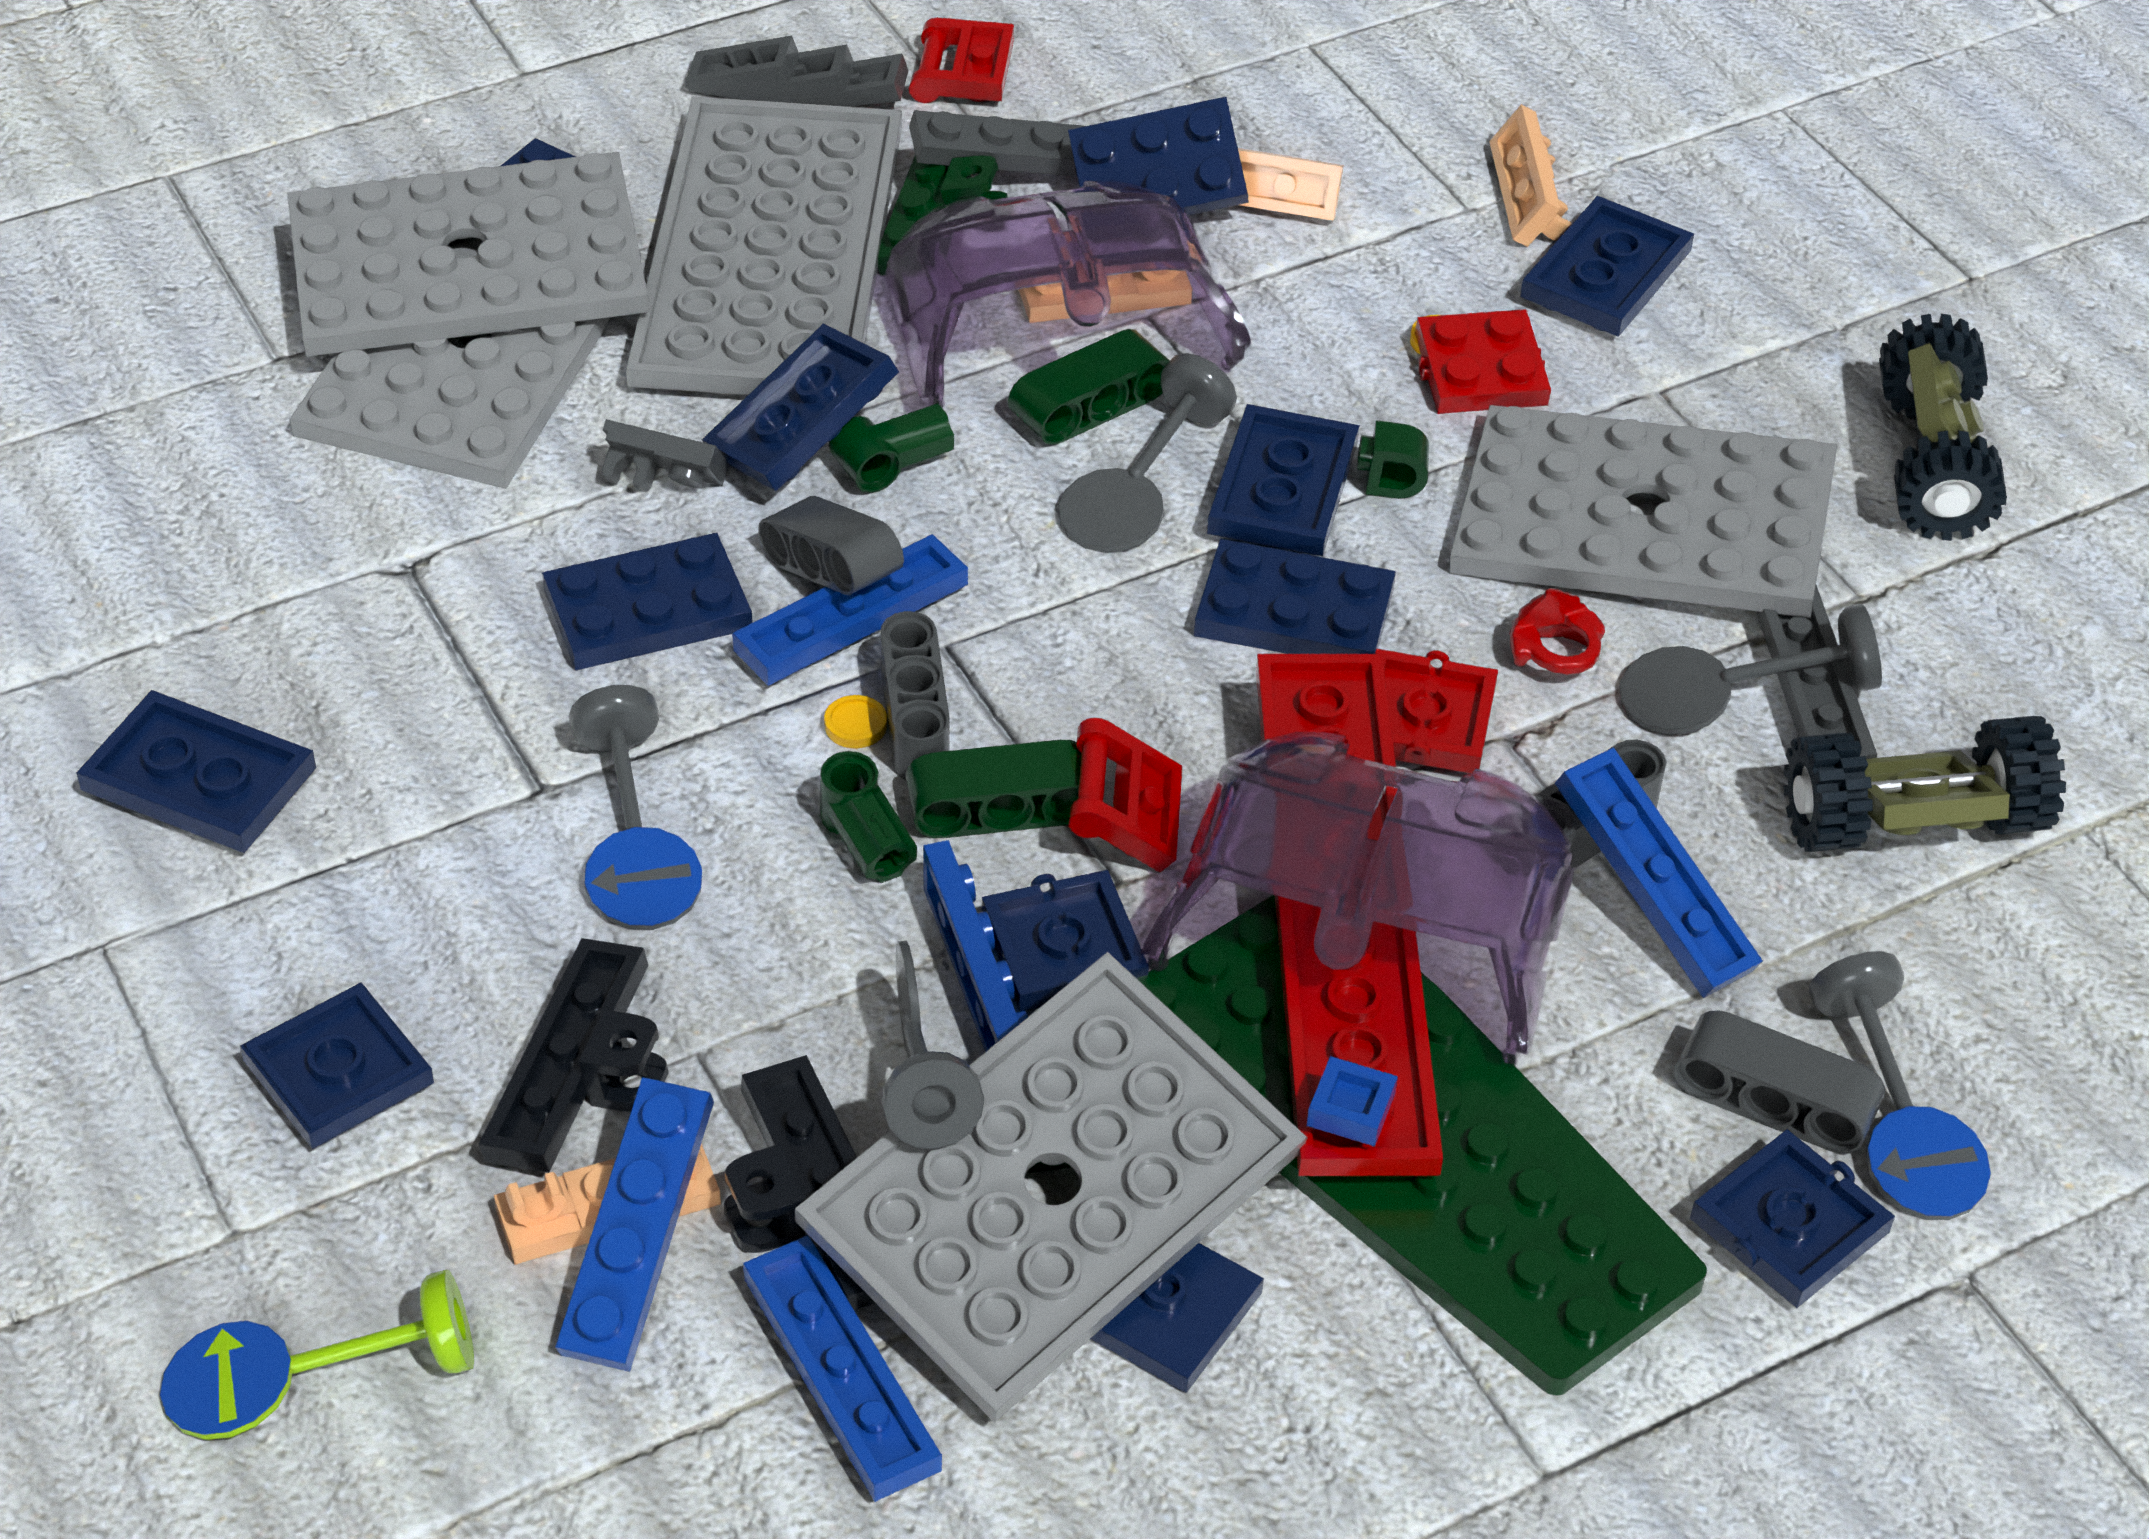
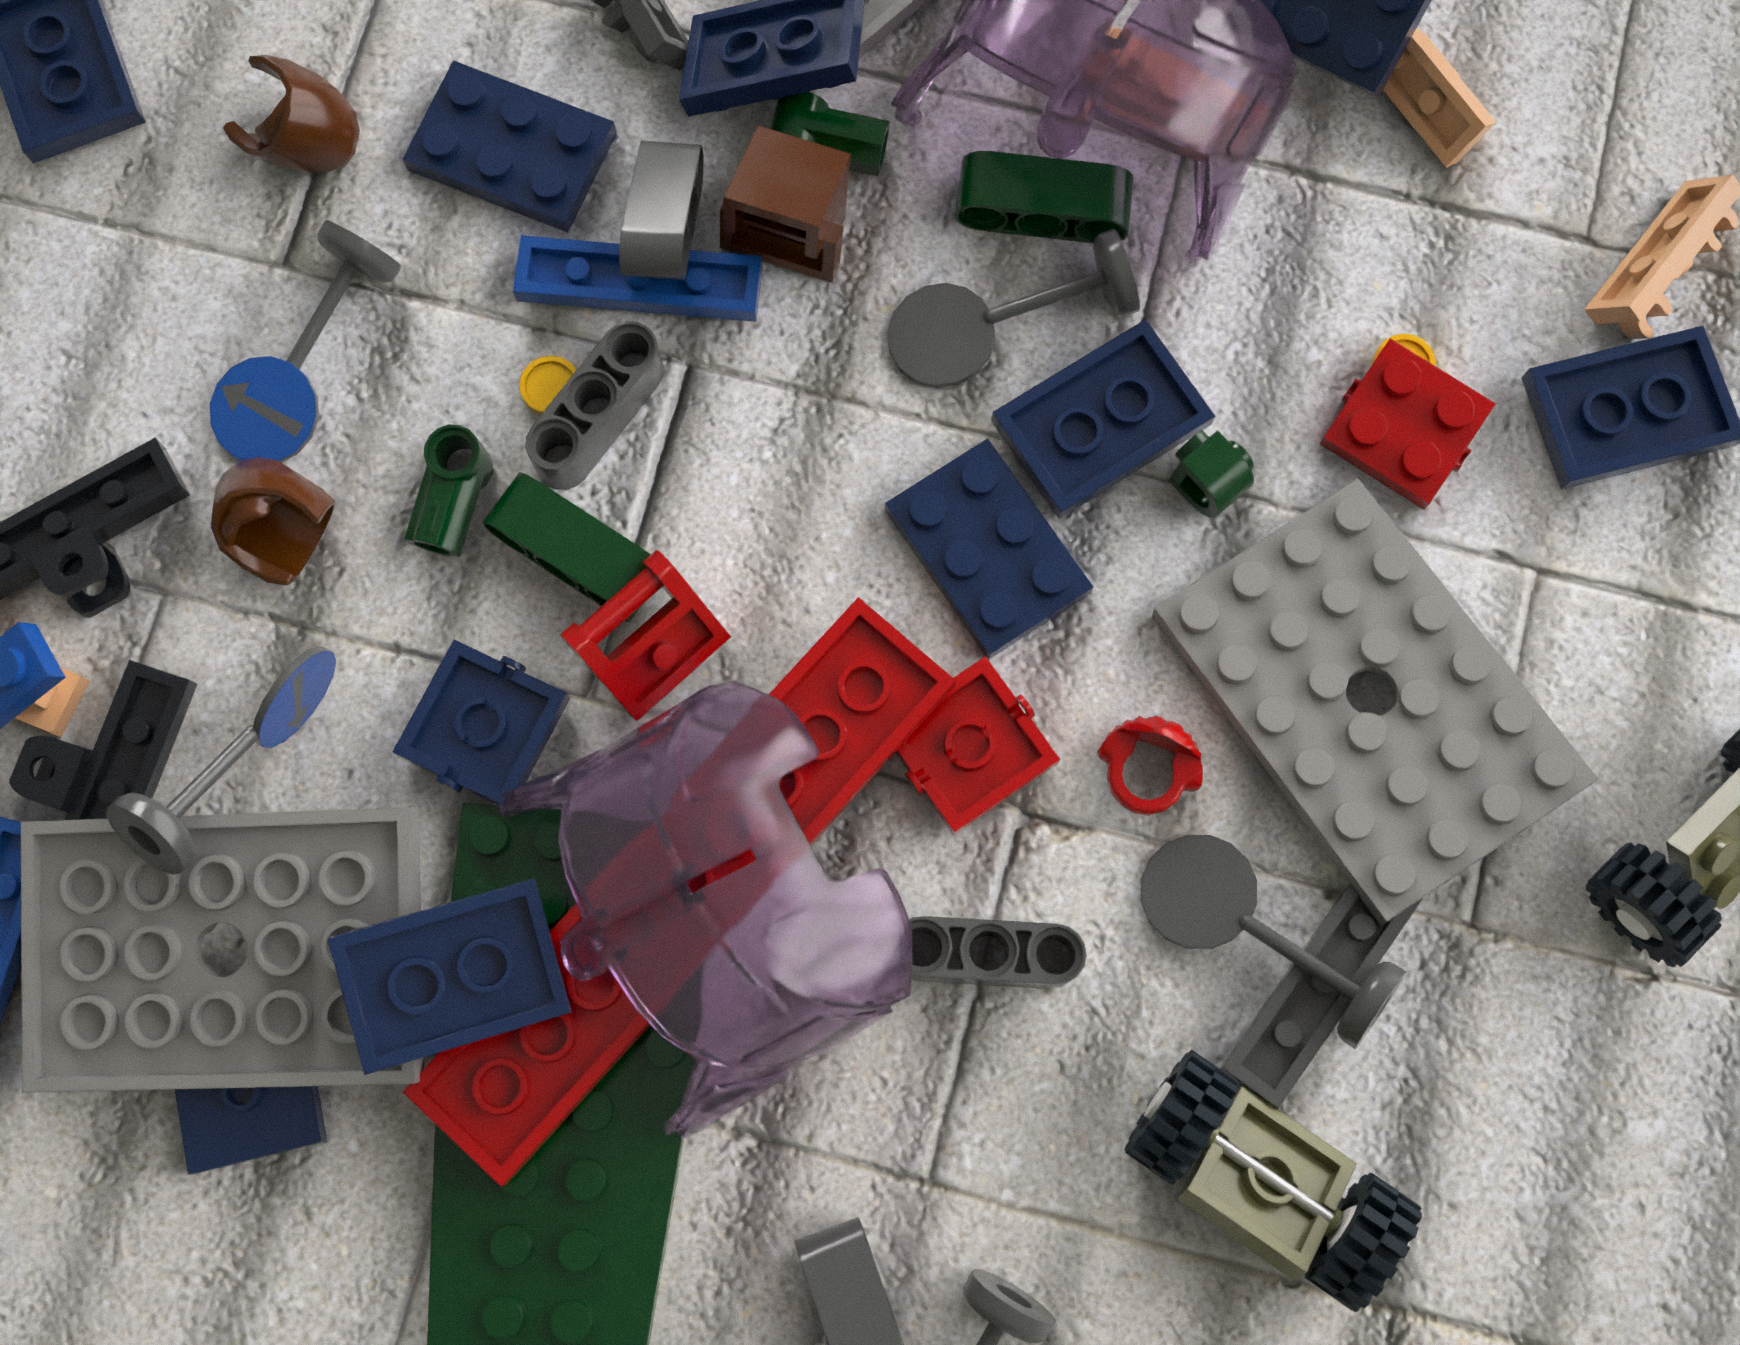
camera: 45 degrees right, 30 degrees up
(469, 668) = (308, 129): none -> reddish brown piece
(738, 912) = (269, 518): none -> reddish brown piece
(926, 481) = (787, 204): none -> reddish brown plate
(969, 944) = (384, 714): blue plate -> none
(1259, 1030) = (449, 975): none -> dark blue plate
(1352, 1101) = (466, 1089): blue plate -> none
(1658, 872) = (956, 1070): blue plate -> none

